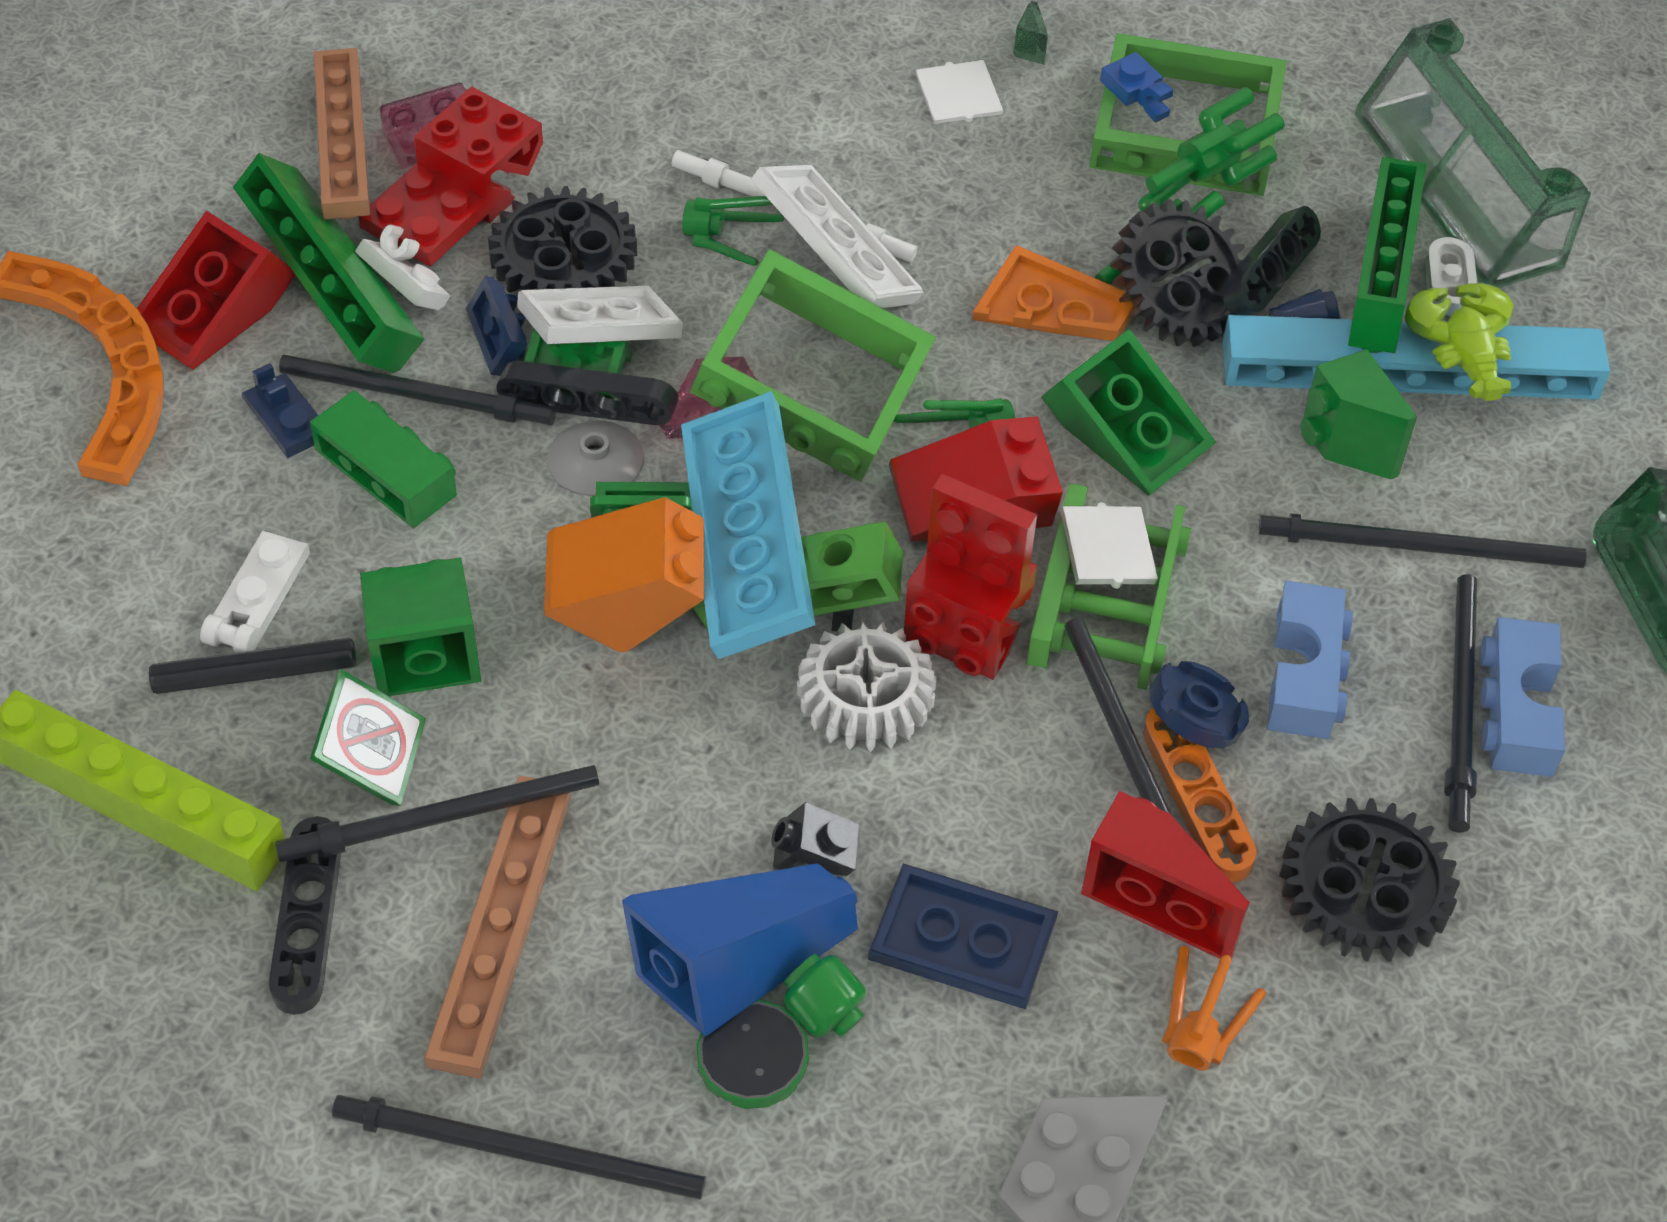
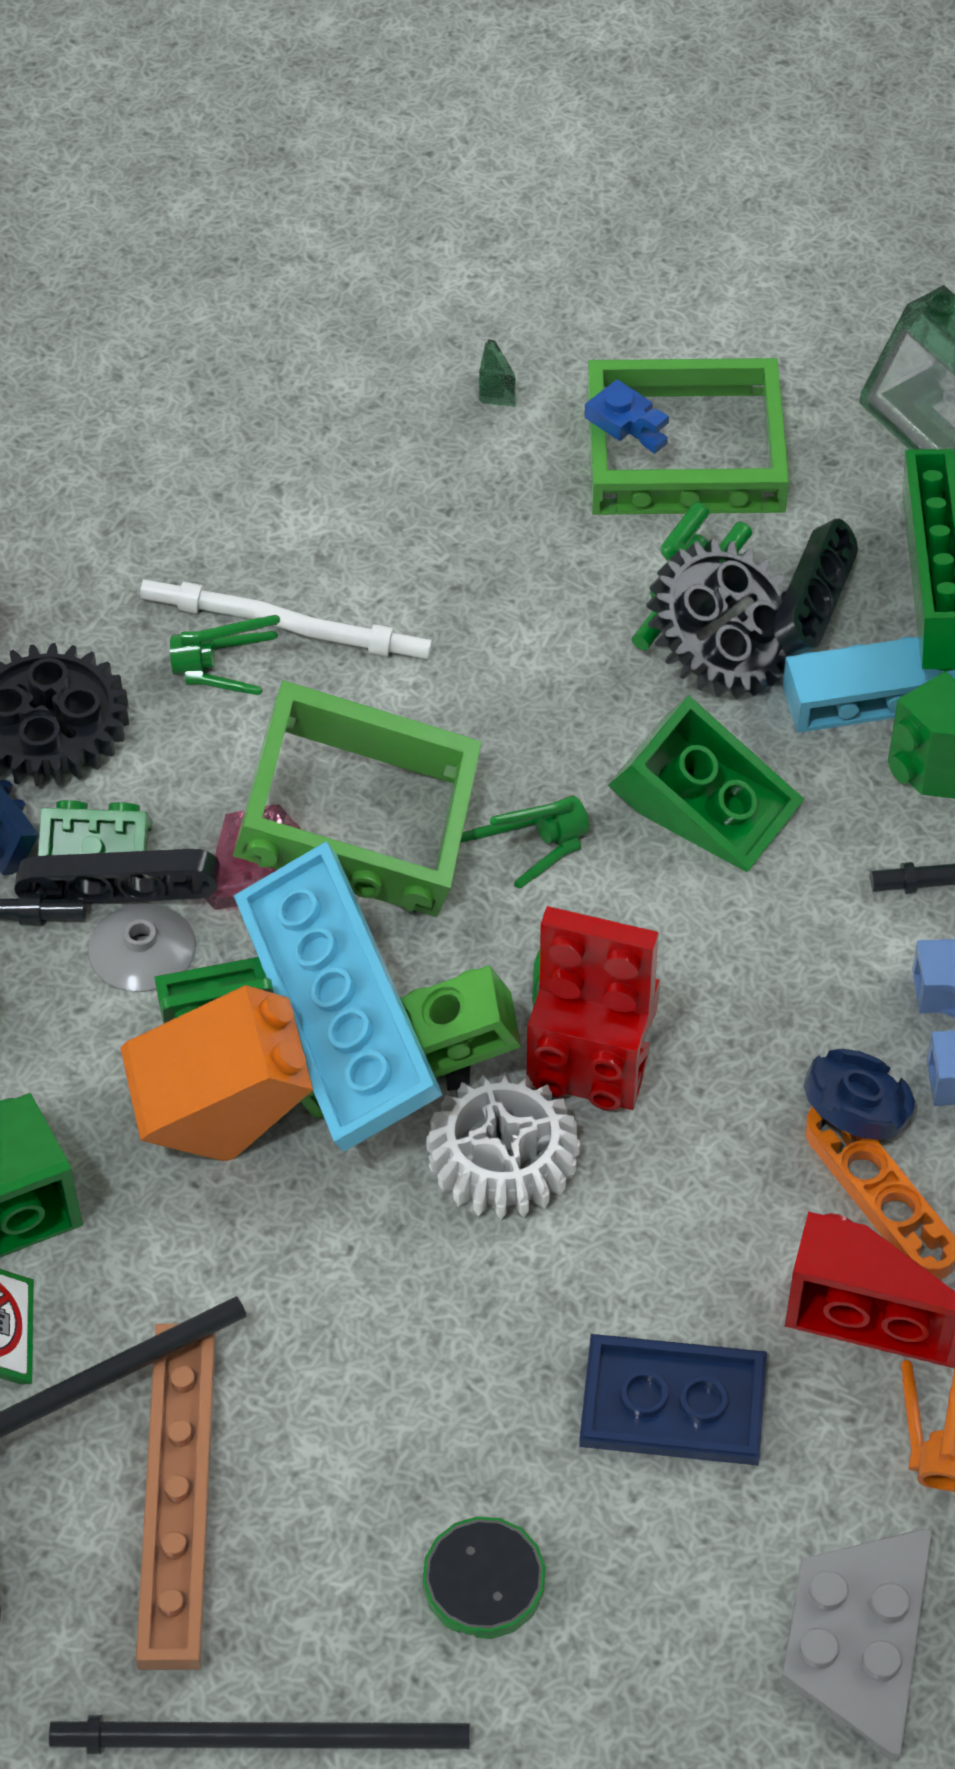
camera: 10 degrees left, 0 degrees up
(598, 314) = (108, 786): white tile -> none
(735, 938) = (438, 1457): blue slope -> none
(814, 838) = (492, 1327): black bracket -> none
(824, 996) = (546, 1498): green head -> none
(837, 235) = (346, 646): white tile -> none
(959, 91) = (431, 454): white piece -> none
(997, 457) = (579, 869): red slope -> none
(1052, 299) = (591, 672): orange wing -> none
(1059, 596) = (685, 1004): bright green fence -> none
(1108, 545) = (723, 939): white piece -> none
(1114, 713) = (775, 1124): black bar -> none
(1221, 145) = (735, 472): green plant -> none
(1311, 305) = (867, 629): dark blue cone -> none

